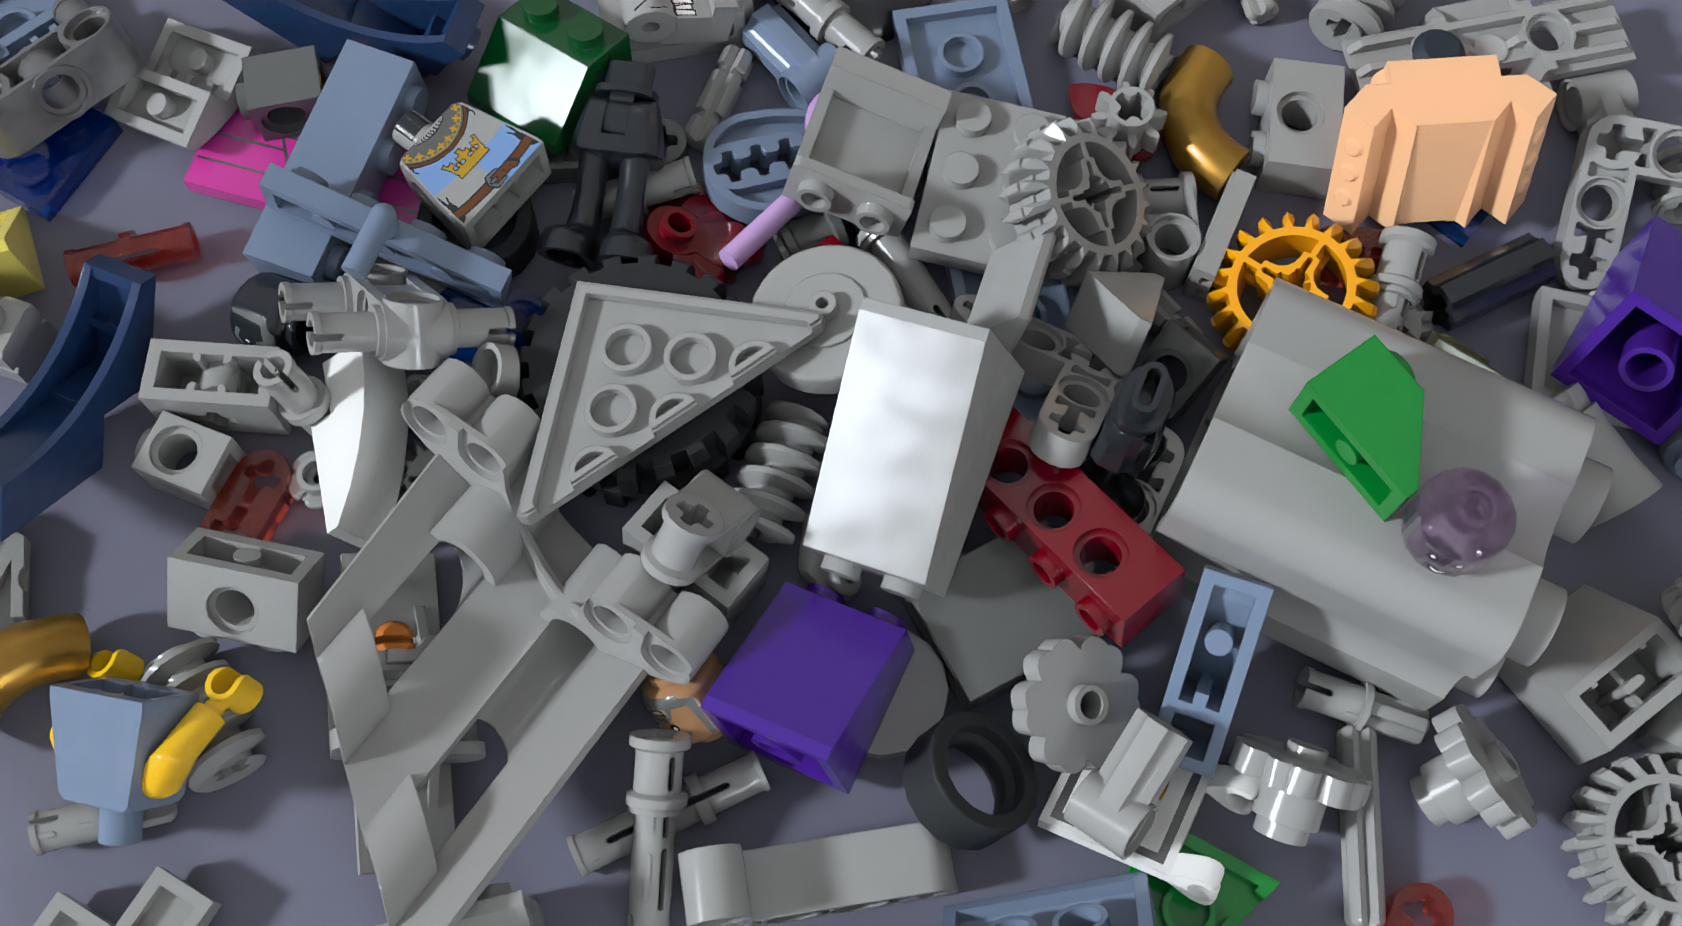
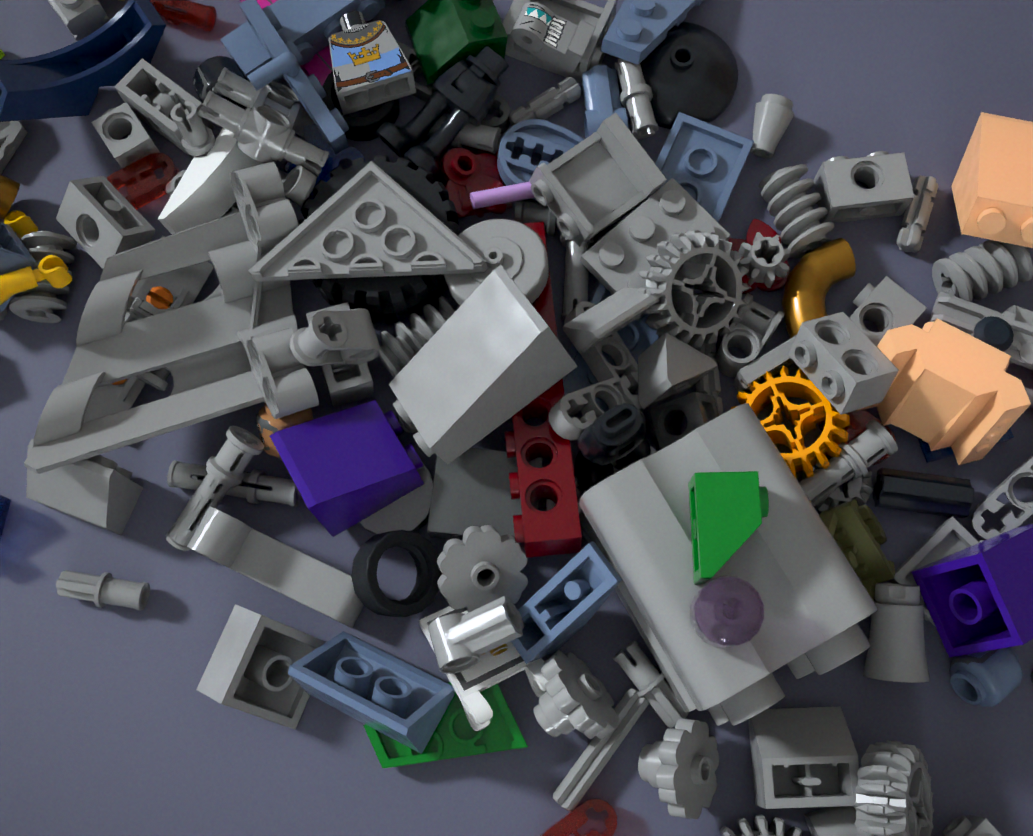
camera: 40 degrees right, 5 degrees up
(1312, 180) = (842, 362): none -> light grey brick

